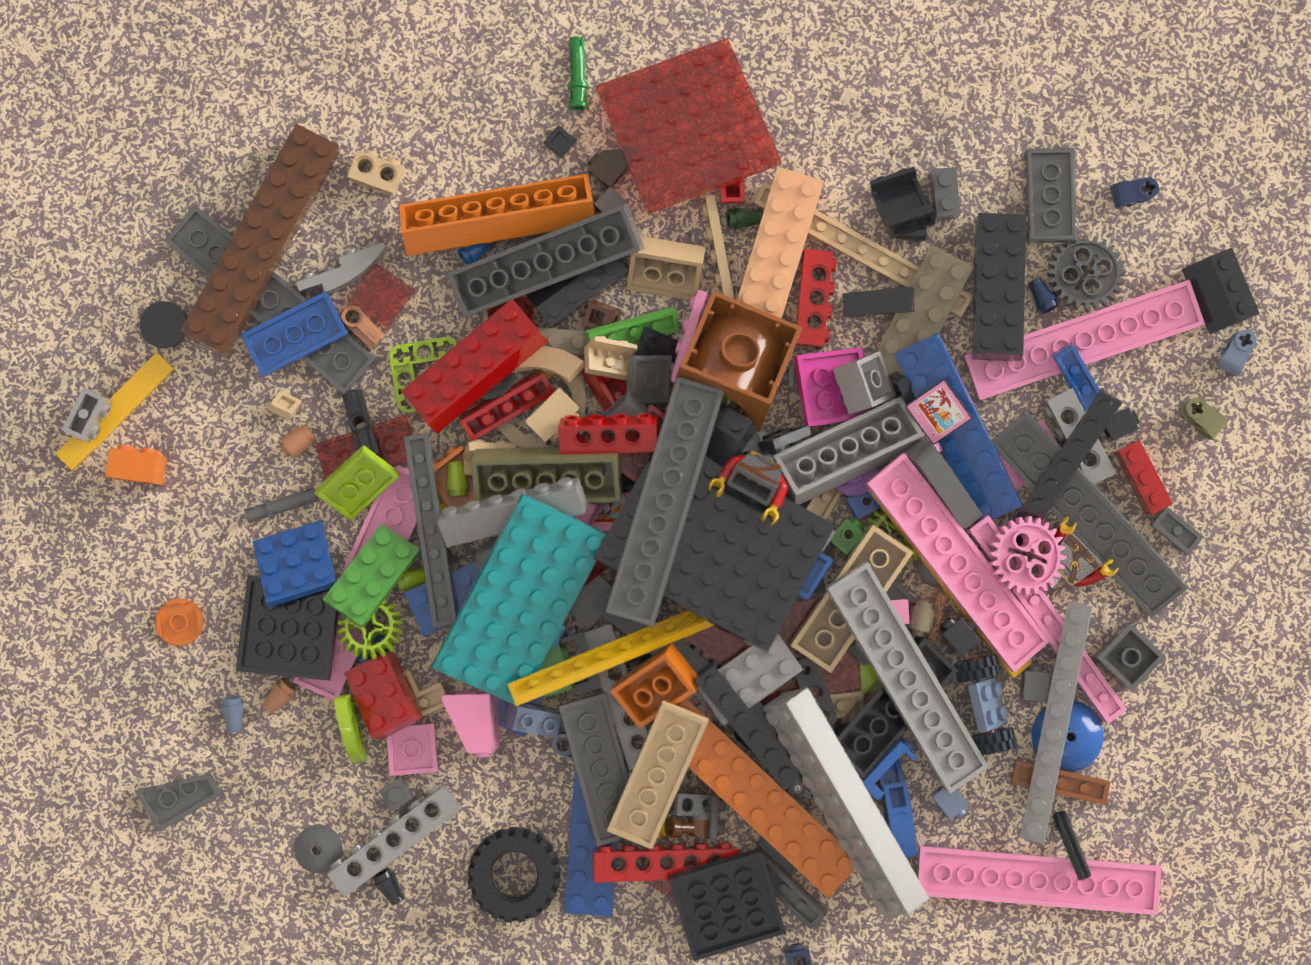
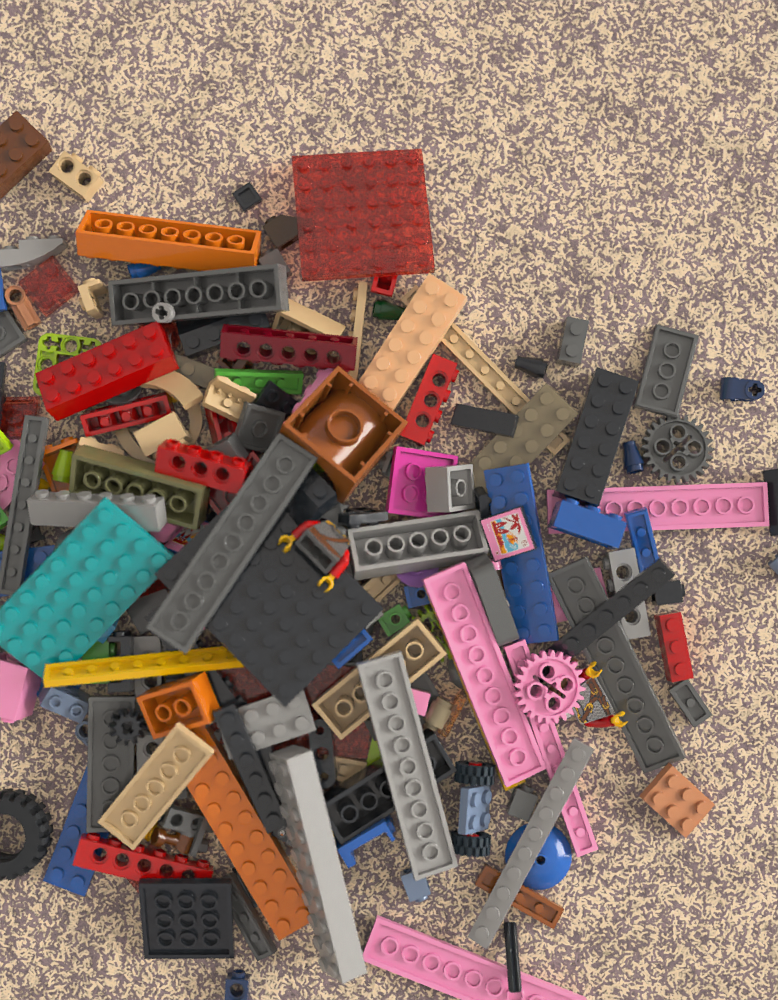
camera: 15 degrees right, 0 degrees up
(428, 288) = (89, 302): none -> tan bracket
(513, 295) = (167, 307): none -> light grey bush
(577, 85) = (277, 152): green pin -> none
(616, 717) = (118, 725): none -> black gear
(645, 280) = (278, 339): none -> dark red brick
(898, 809) = (366, 881): blue slope -> none
(901, 202) = (531, 338): black panel -> none
(958, 635) = (467, 738): black brick -> none
(1017, 377) = (587, 523): none -> blue brick
(1128, 656) = (613, 803): dark grey brick -> none
(1193, 634) = (677, 800): none -> nougat plate
(1206, 420) = (745, 611): olive piece -> none

